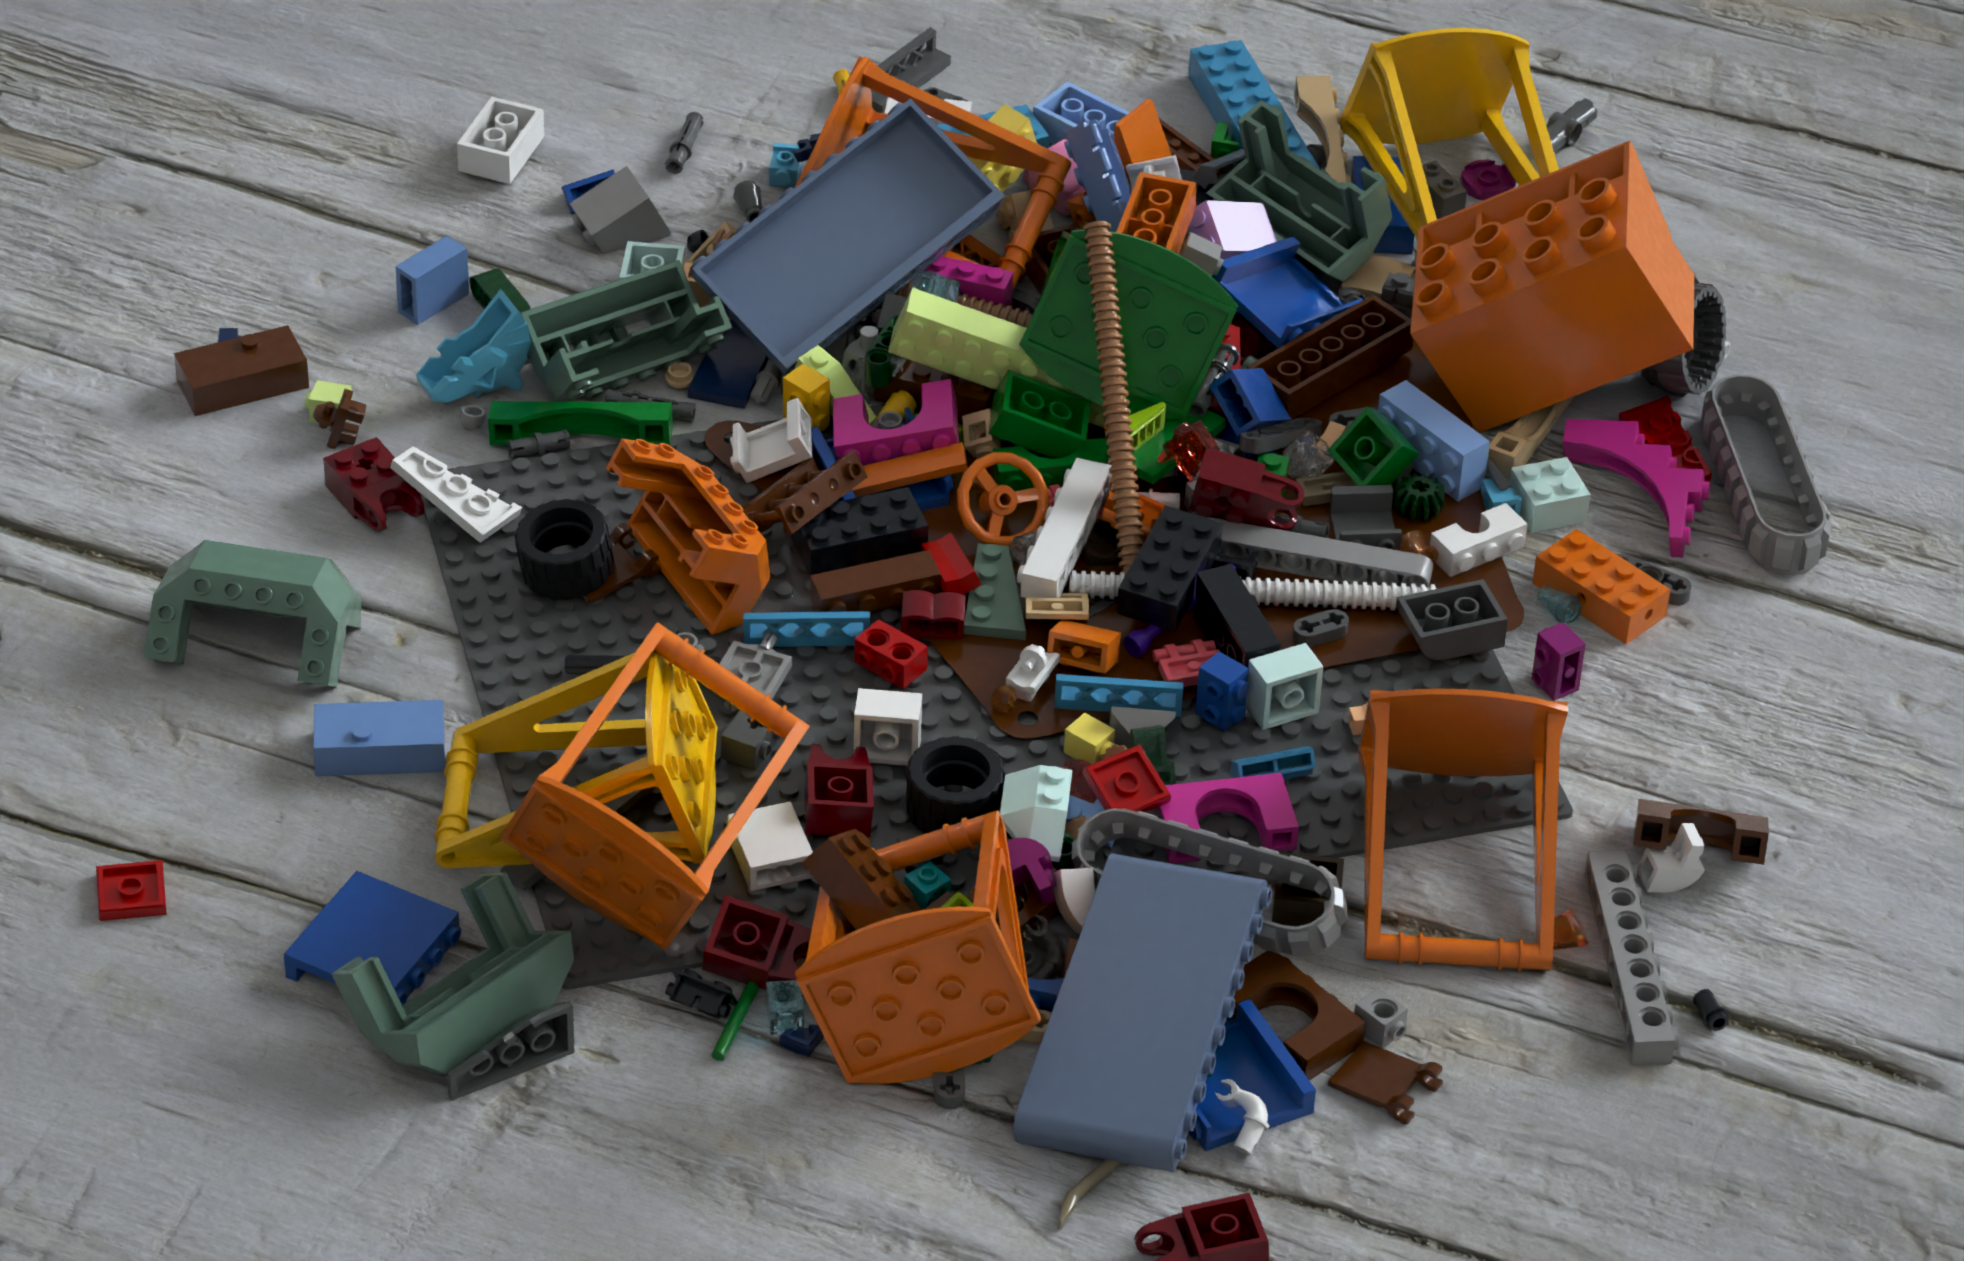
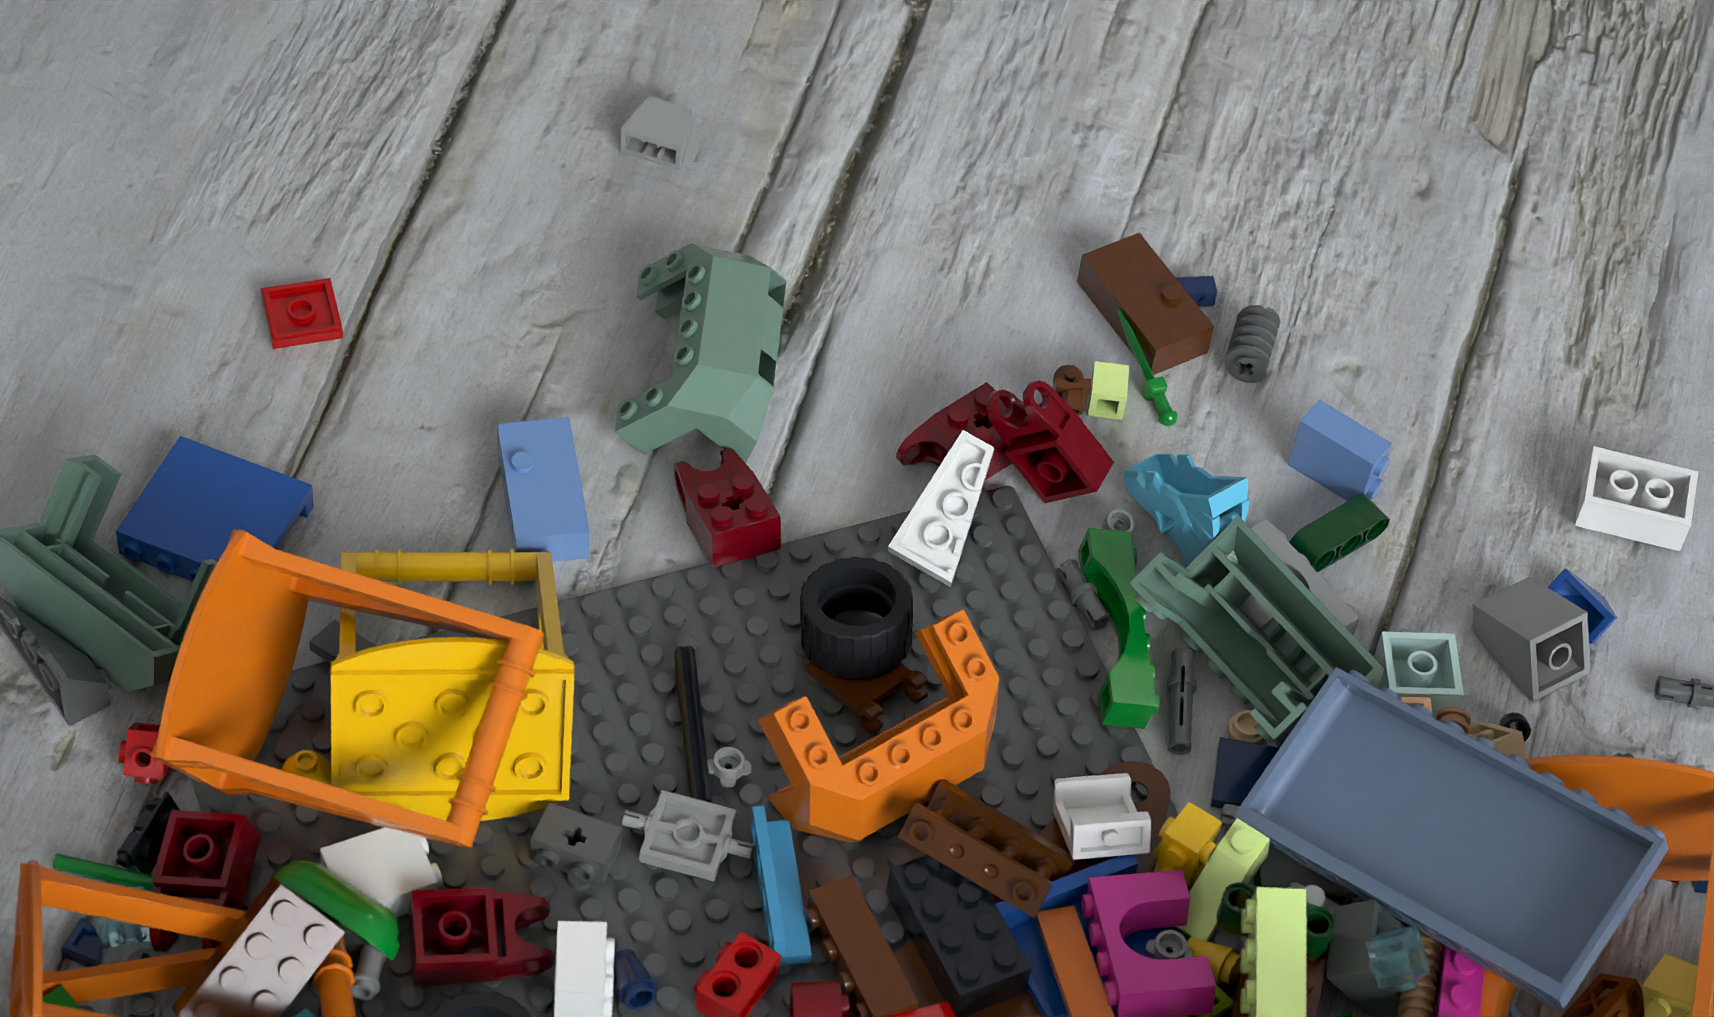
camera: 80 degrees right, 10 degrees up
(299, 317) = (1252, 343): none -> dark grey piece
(309, 381) = (1154, 387): none -> green sword
(410, 419) = (1049, 443): none -> dark red brick
(417, 628) = (728, 510): none -> dark red brick
(625, 983) = (135, 751): none -> red brick
(787, 867) = (343, 904): none -> green brick

